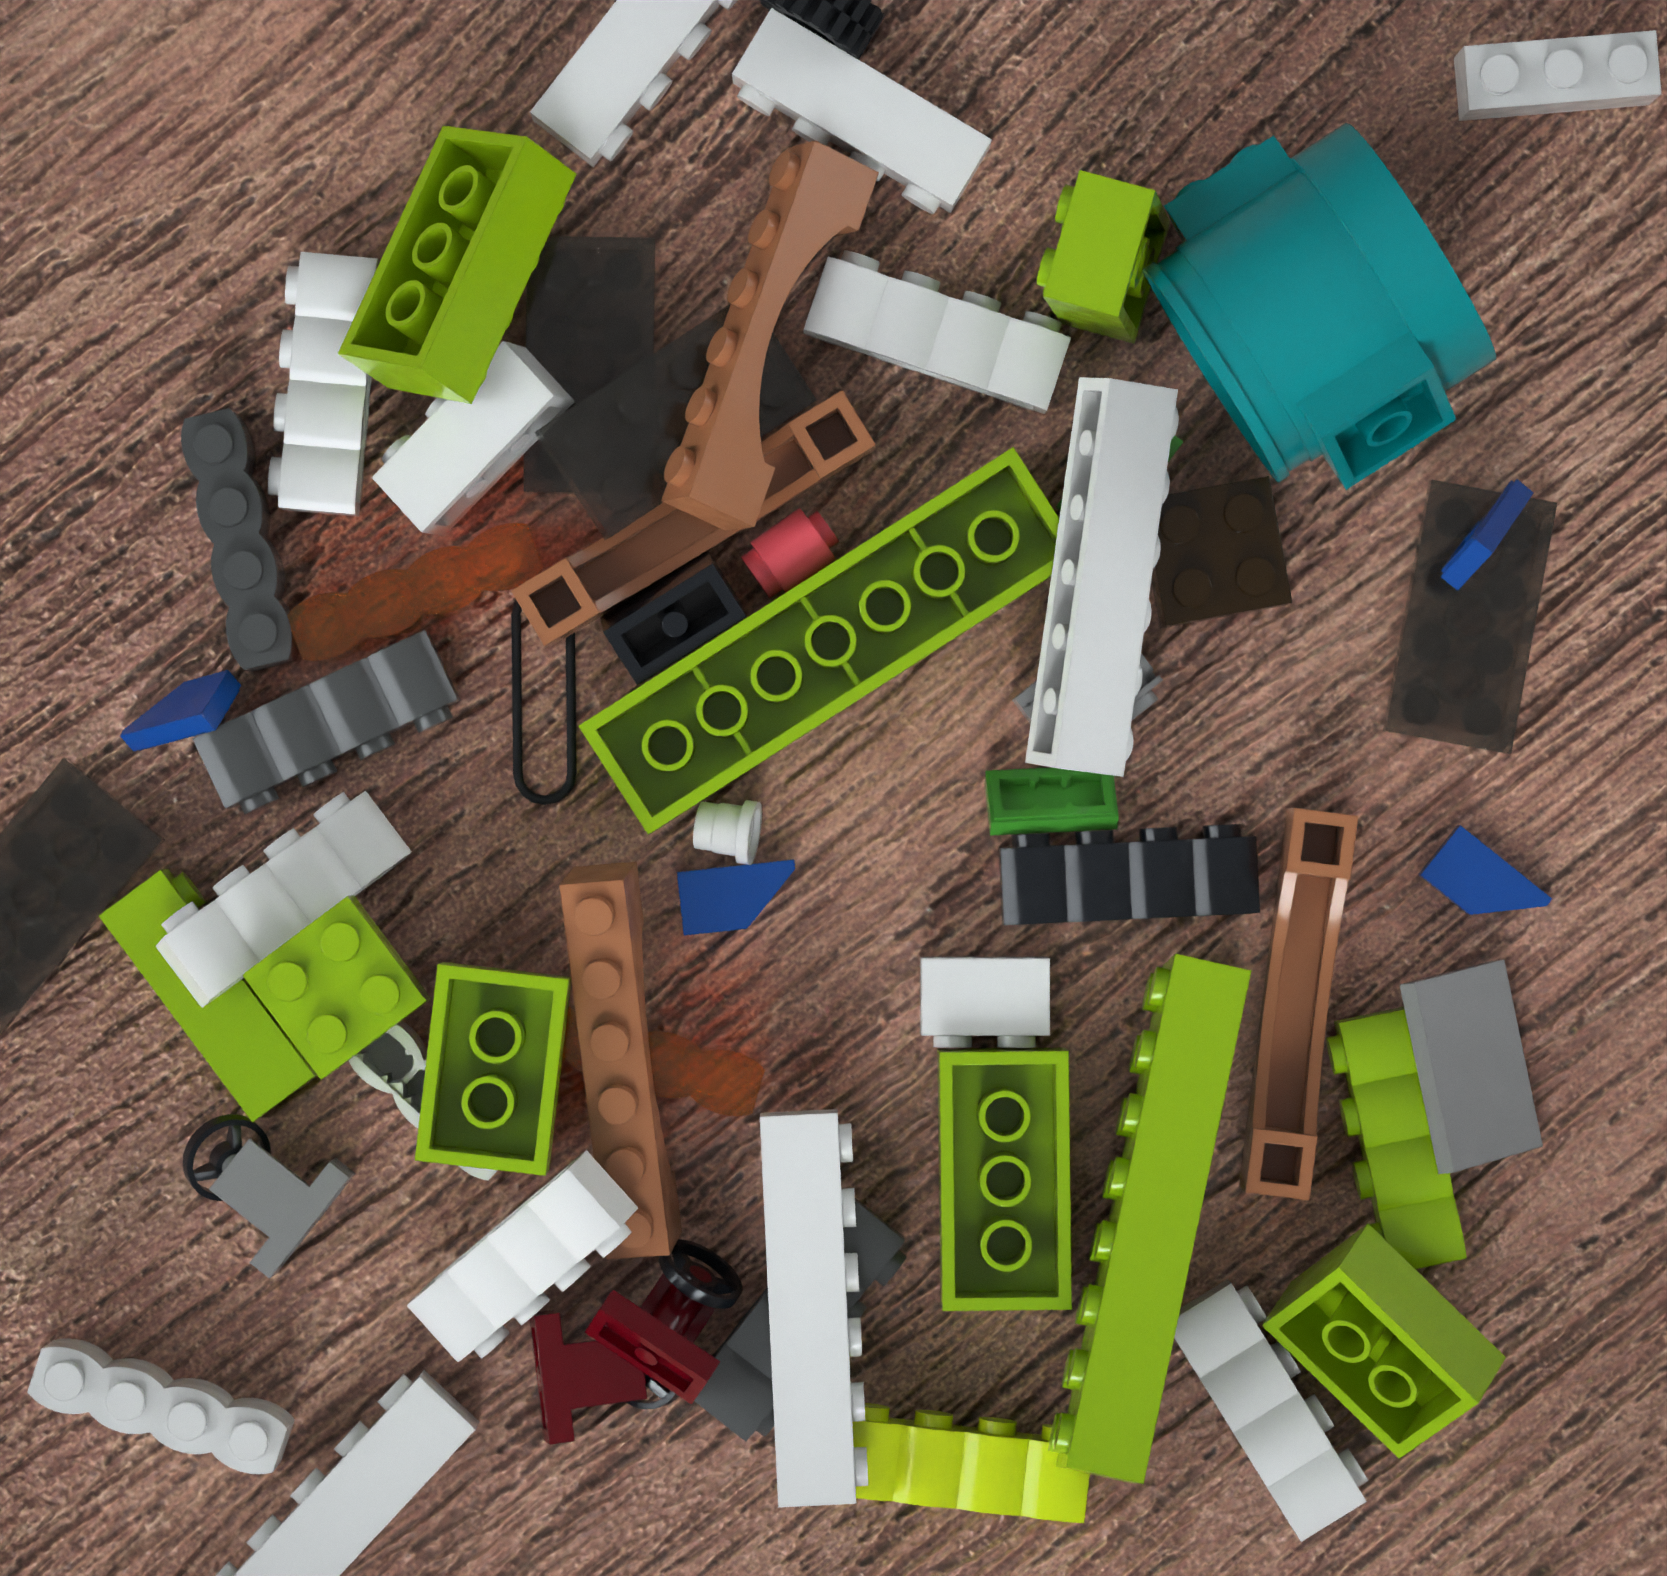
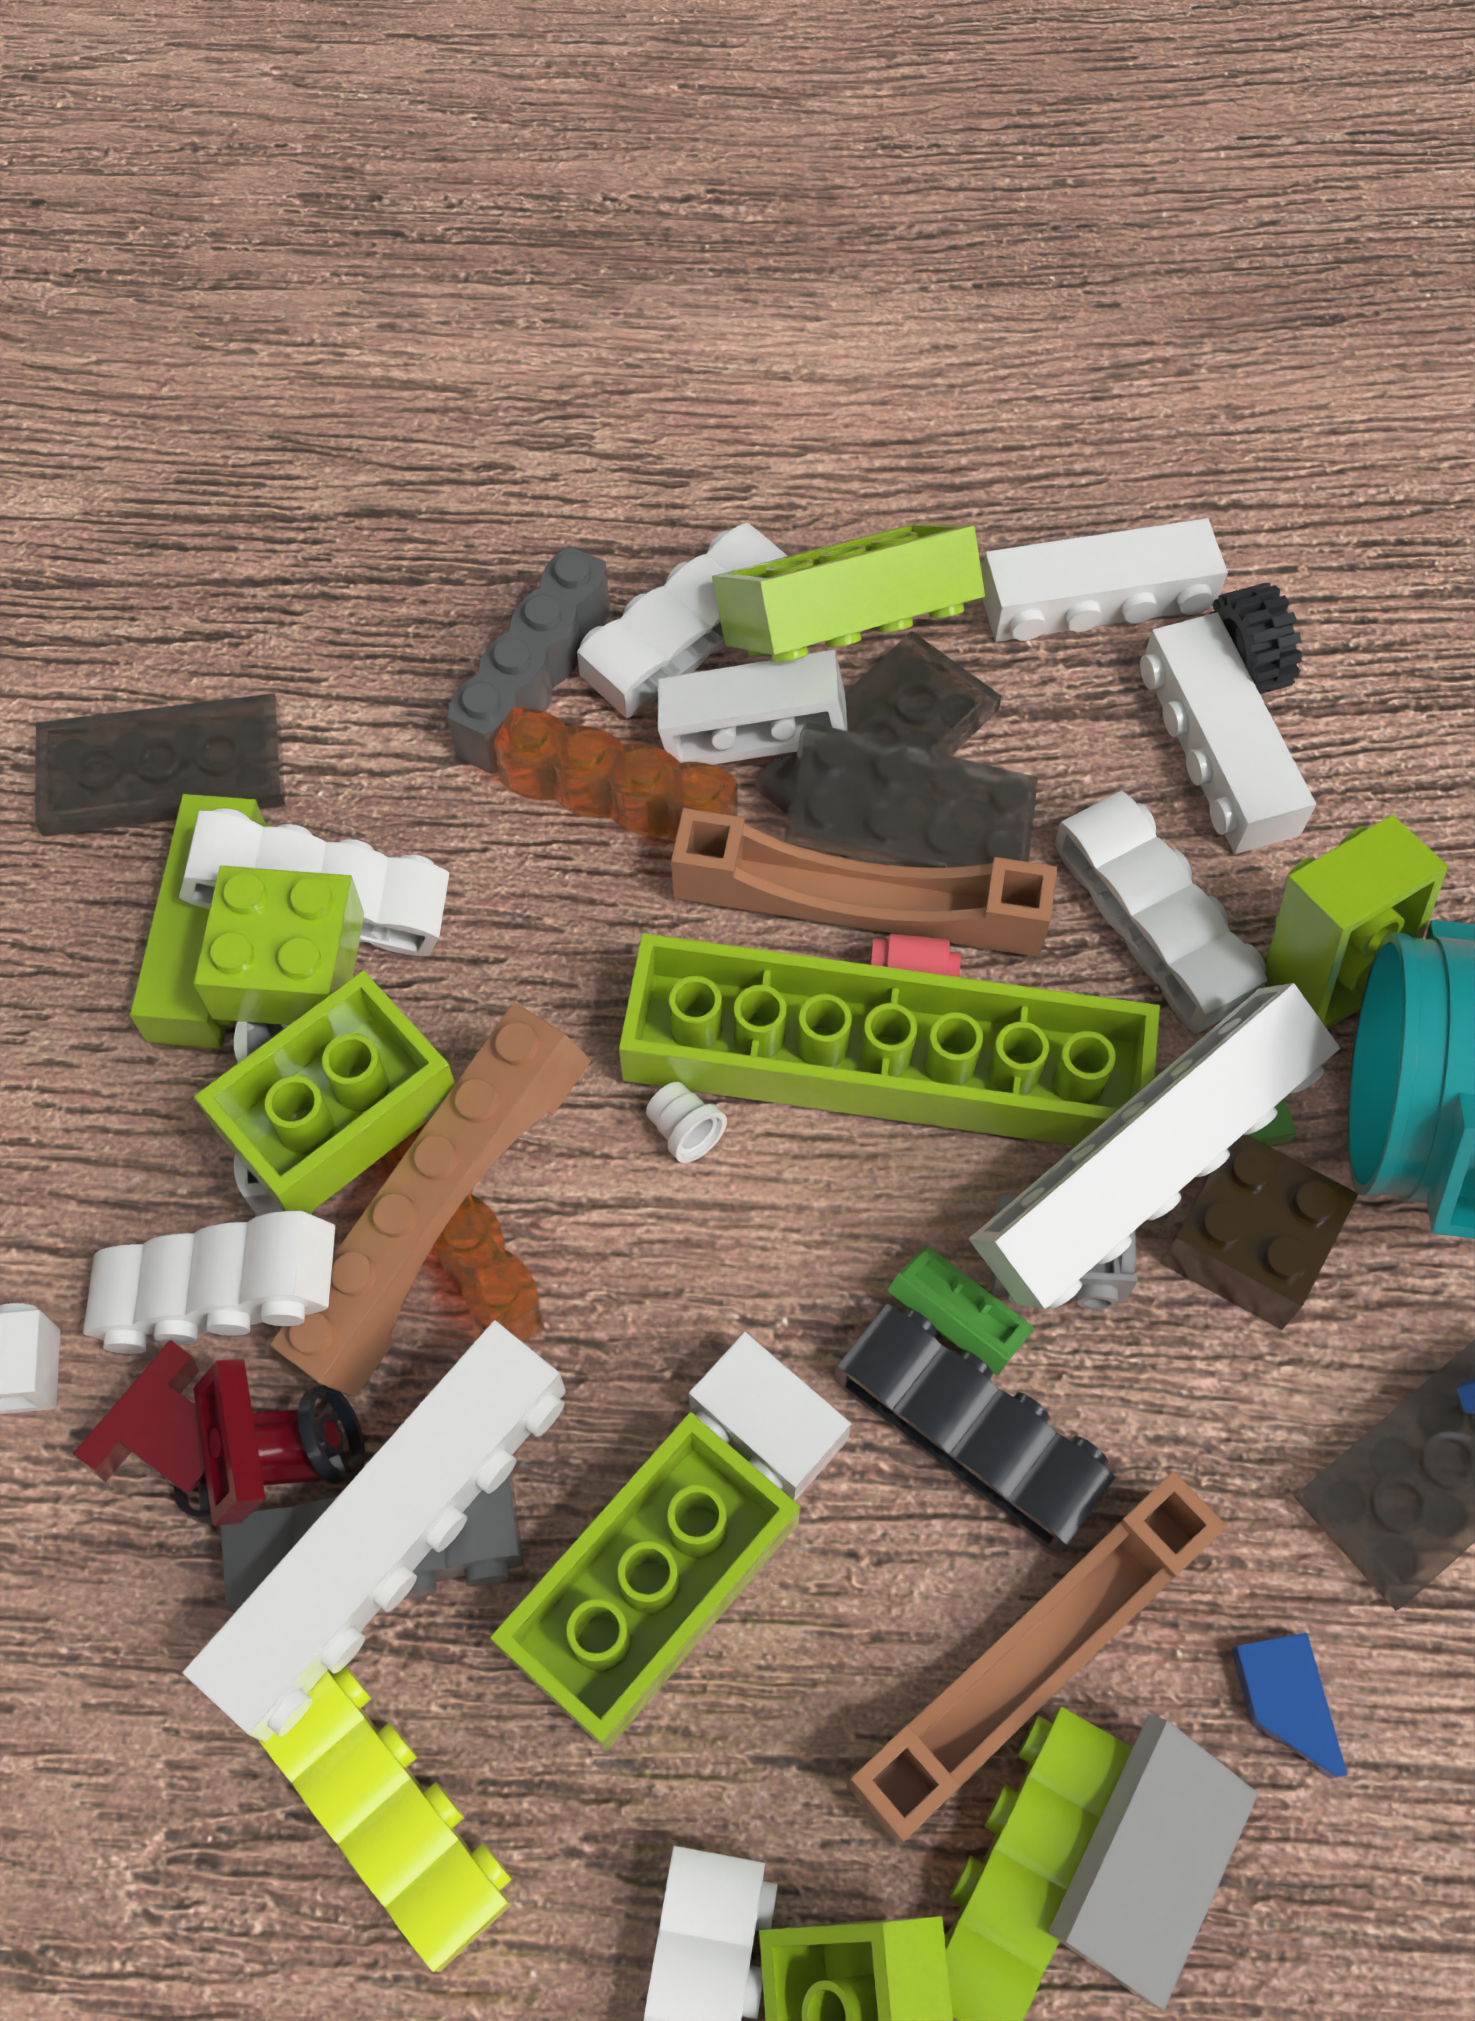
camera: 40 degrees right, 25 degrees down
(186, 712) = (383, 731): blue tile -> none
(263, 1188) = (86, 1090): light grey piece -> none
(327, 720) = (472, 812): dark grey brick -> none
(517, 715) = (605, 929): black piece -> none
(672, 617) = (784, 922): black brick -> none
(721, 460) = (920, 841): nougat arch -> none
(729, 895) = (639, 1172): blue tile -> none
(1152, 1218) = (730, 1732): lime brick -> none

